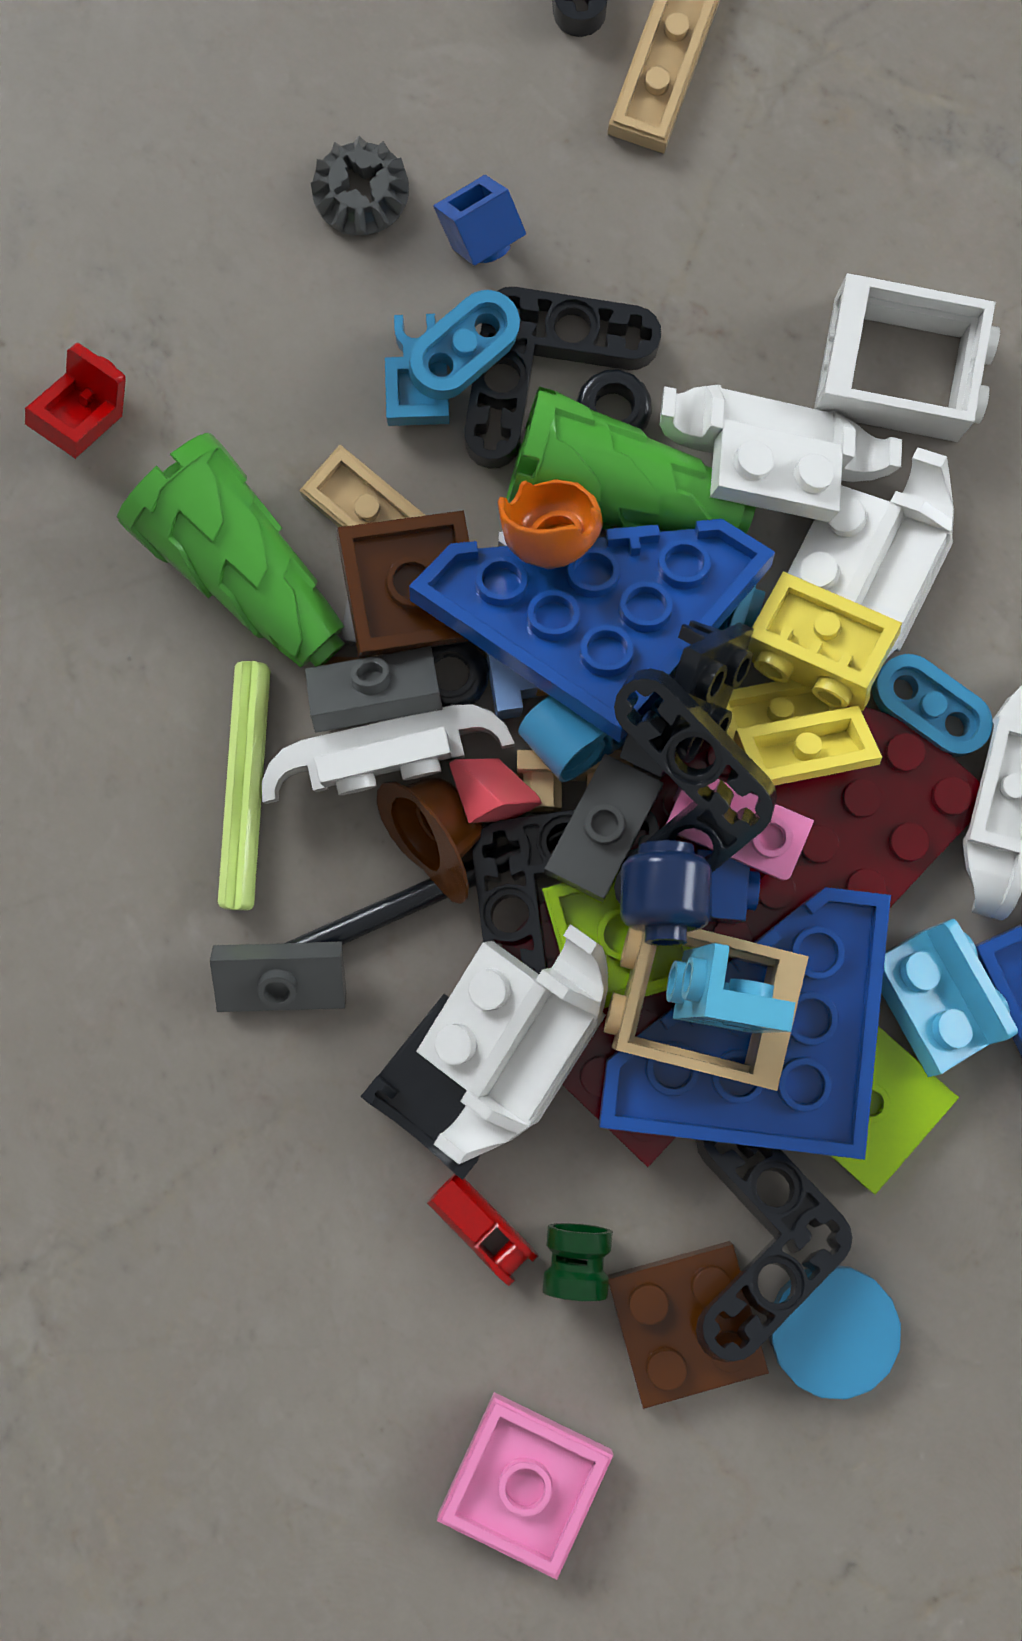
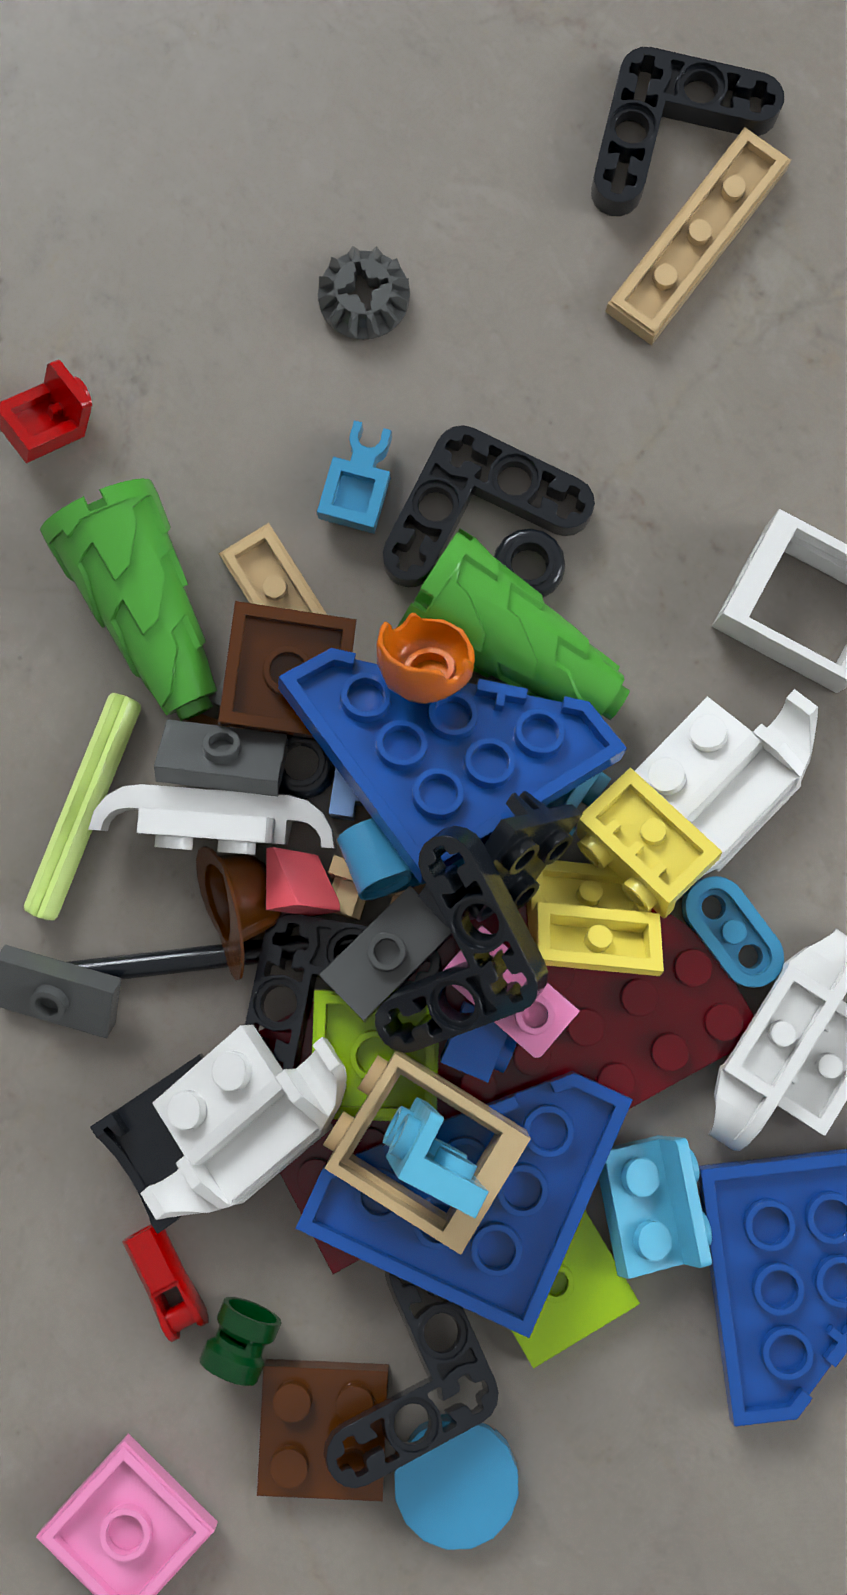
camera: 25 degrees right, 0 degrees up
(461, 347) = (403, 467): dark azure plate -> none
(480, 220) = (460, 358): blue plate -> none
(666, 892) = (414, 1039): dark blue head -> none
(776, 450) = (661, 651): white plate -> none

